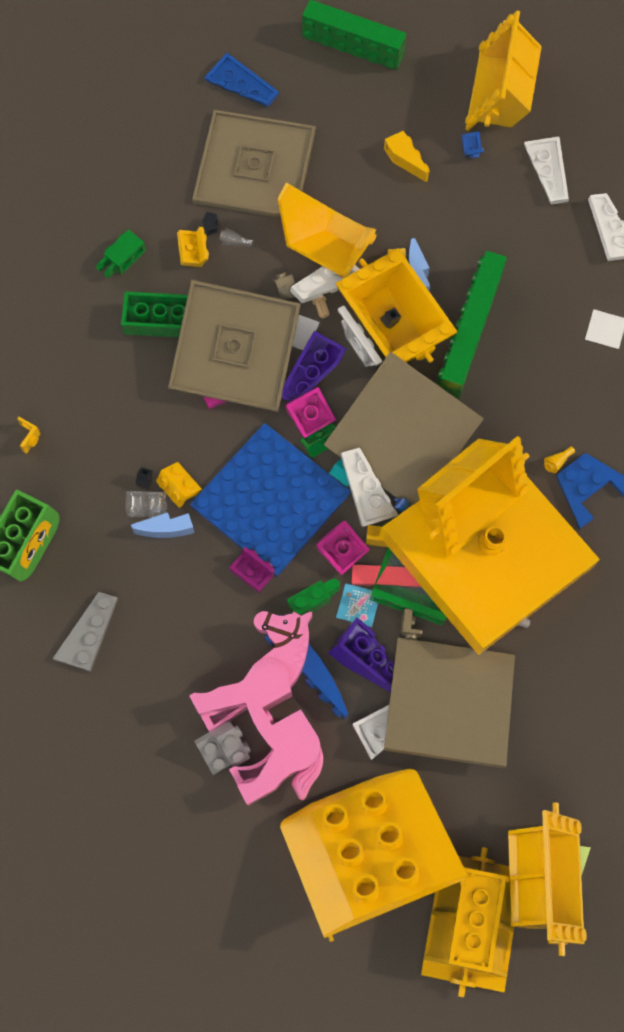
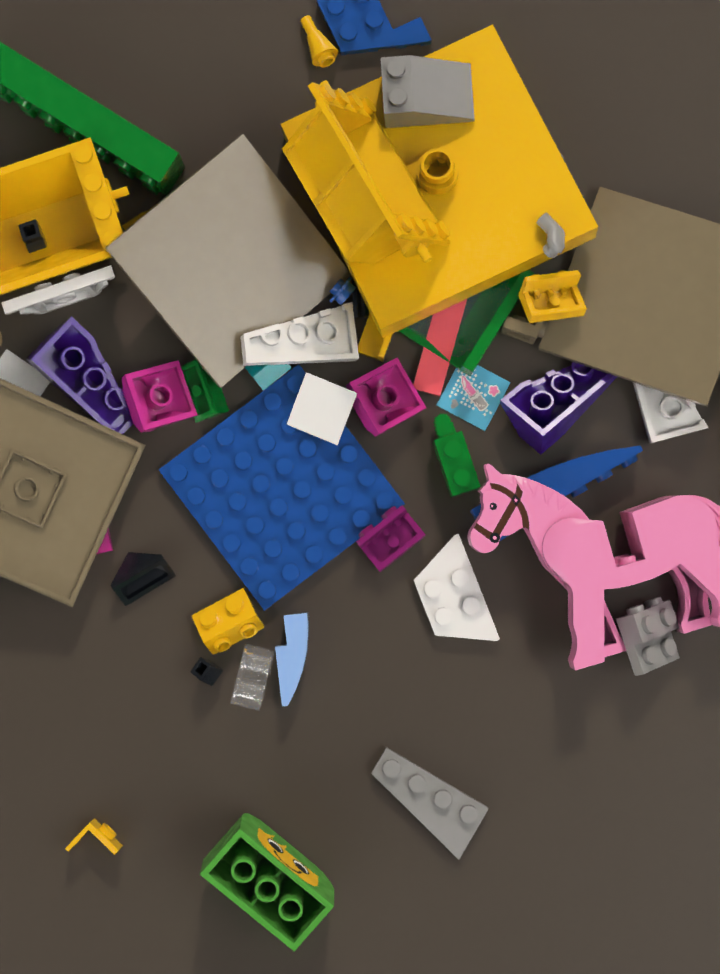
camera: 75 degrees left, 15 degrees up
(195, 426) = (140, 575): none -> black slope
(223, 620) = (454, 596): none -> white wing
(325, 508) = (321, 408): none -> white sticker
(432, 634) = (552, 296): none -> yellow bracket
(469, 620) = (555, 235): none -> light grey arm
(542, 523) = (426, 91): none -> light grey slope

